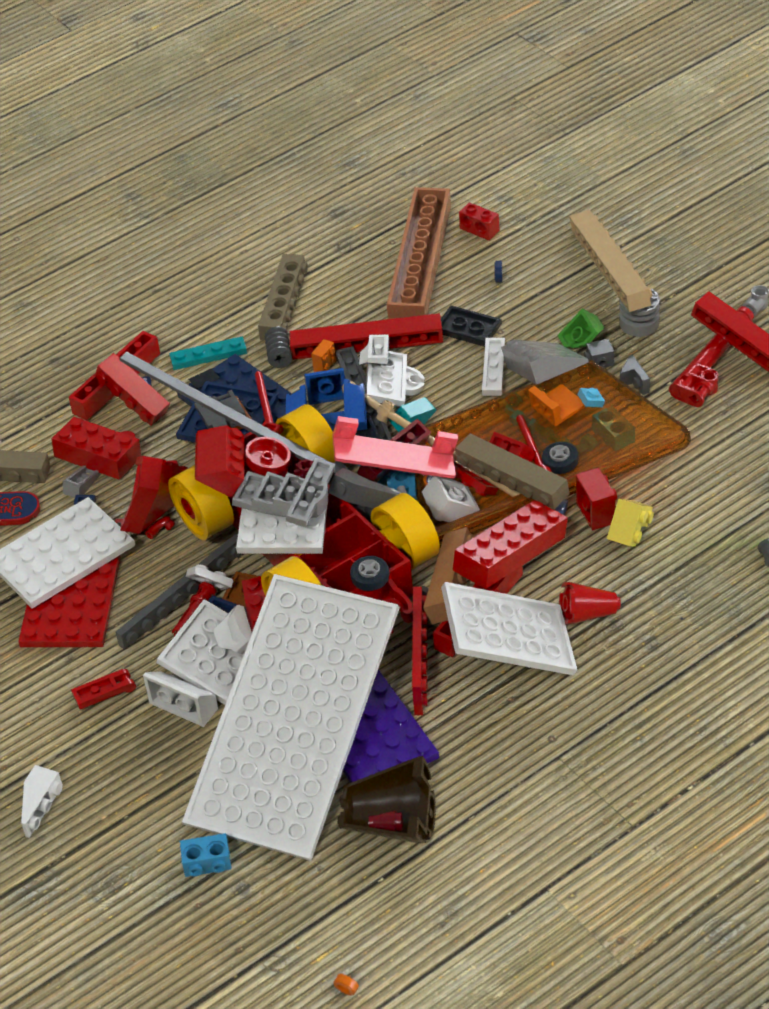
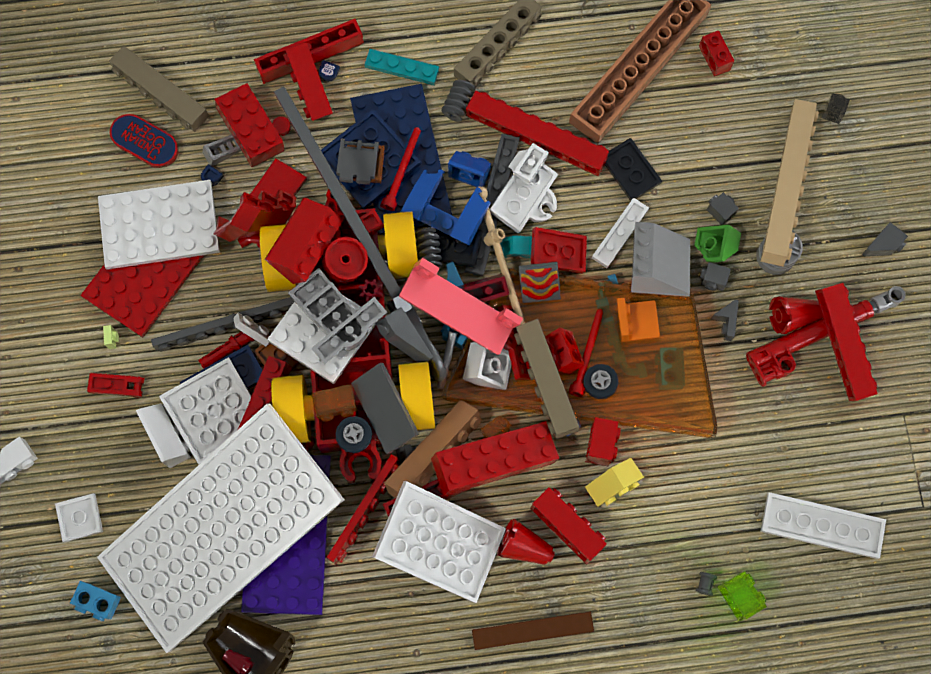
camera: 25 degrees right, 30 degrees up
(72, 655) = (110, 337): none -> yellowish green plate
(139, 806) = (79, 517): none -> white tile
(199, 380) = (377, 100): black piece -> none
(234, 631) = (233, 403): white slope -> none
(323, 356) = (488, 135): orange piece -> none
(333, 559) = (334, 402): none -> clear orange brick
(384, 537) = (385, 408): none -> dark grey tile
(448, 397) = (559, 247): none -> red plate
(451, 417) = (539, 282): none -> slope
(498, 271) = (693, 125): dark blue tile -> none
(566, 309) = (722, 208): none -> dark grey brick
(591, 397) = (667, 333): medium azure plate -> none
(608, 209) = (835, 108): none -> clear smoke brick
(615, 567) = (568, 525): none -> red brick
(644, 665) = (532, 630): none -> reddish brown tile
(684, 343) = (793, 313): none -> red cone
(723, 268) = (887, 242): none -> dark grey slope

